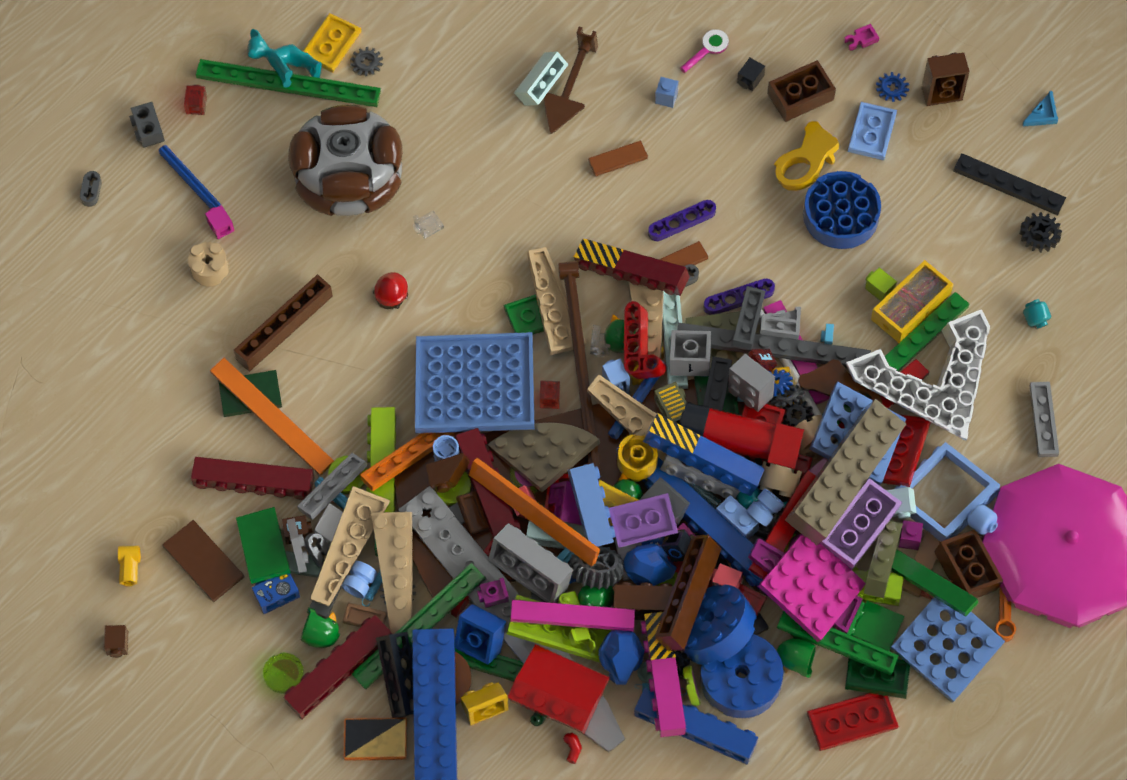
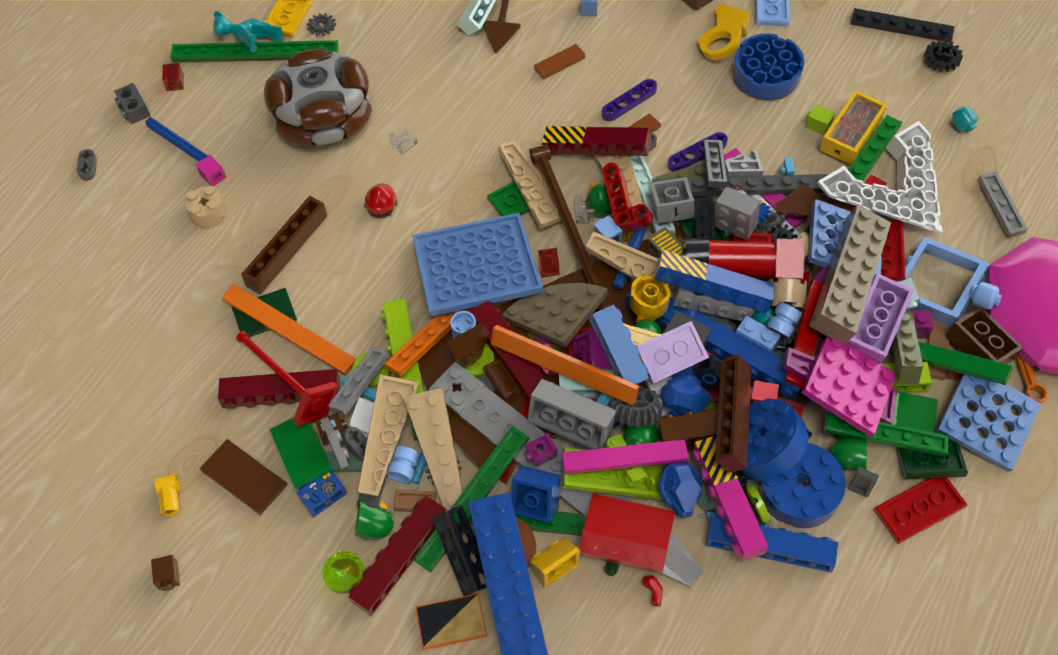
camera: 10 degrees left, 5 degrees down
(284, 500) = (313, 401): none -> red tile
(800, 684) = (863, 482): none -> dark grey tile

